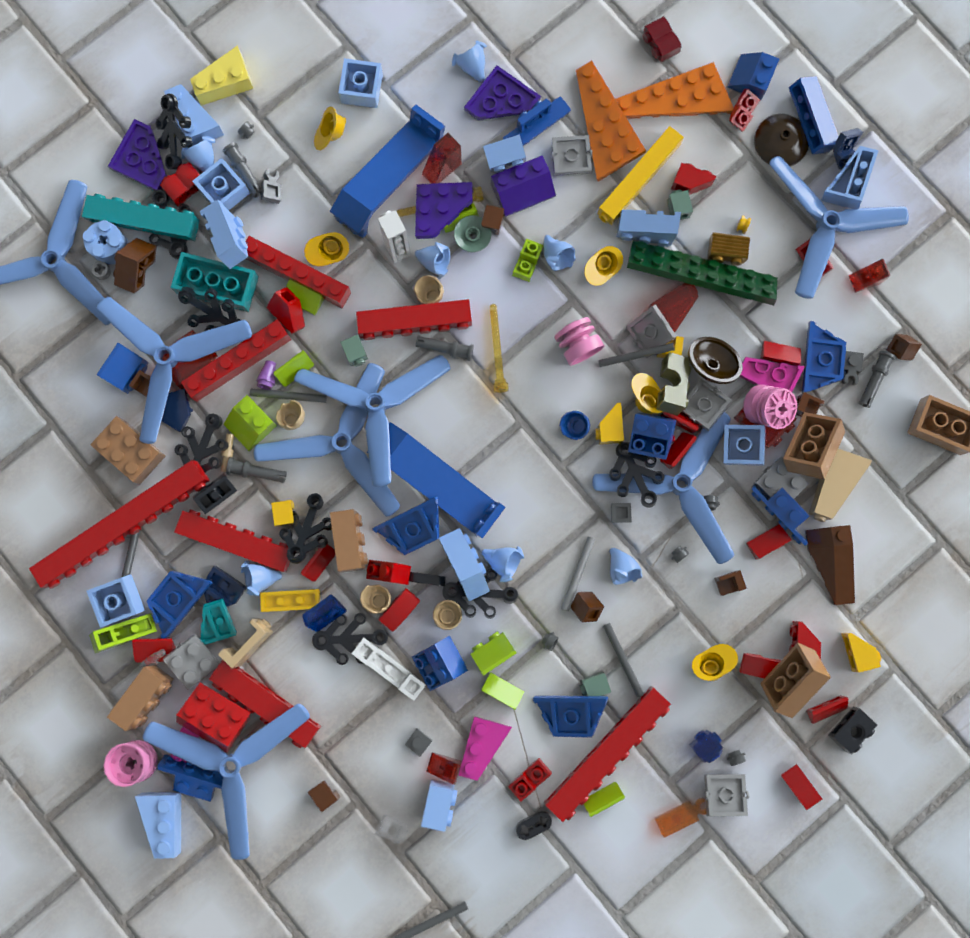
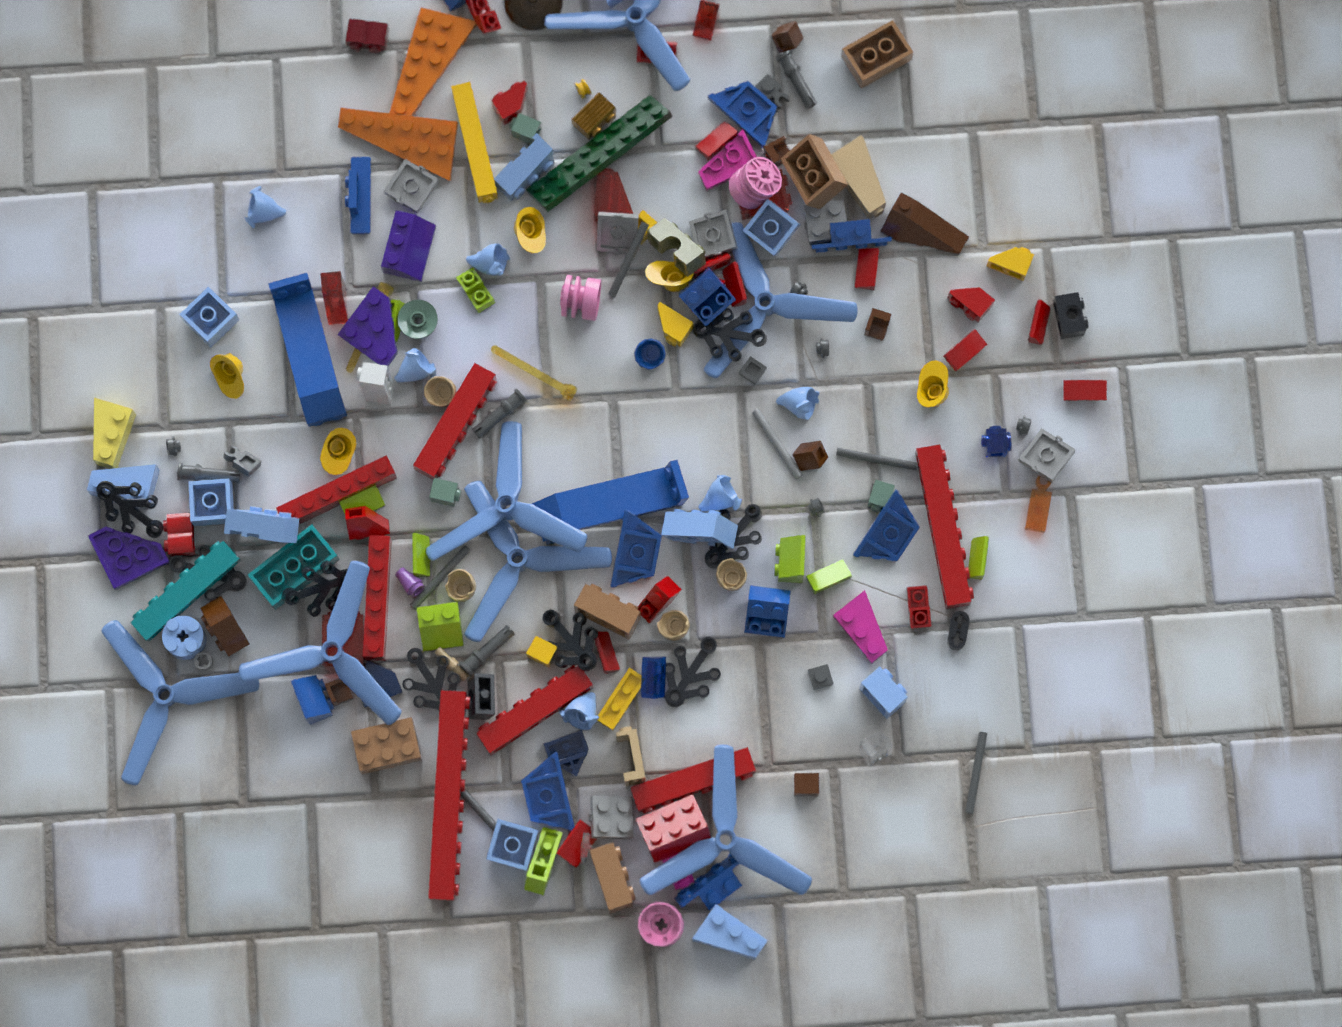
camera: 50 degrees left, 5 degrees down
(201, 154) = (169, 500): light blue hat -> none
(216, 622) = (593, 773): teal wing -> none
(388, 668) = (741, 657): white slope -> none
(399, 609) = (697, 611): red slope -> none
(427, 579) = (689, 570): black beam -> none
(444, 767) = (857, 668): clear red slope -> none
(493, 218) = (417, 292): reddish brown panel -> none
(501, 97) = (313, 206): dark purple plate -> none
(505, 153) = (371, 240): light blue brick -> none
(715, 360) = (682, 198): dark brown dish -> none
(795, 680) = (992, 329): medium nougat brick -> none

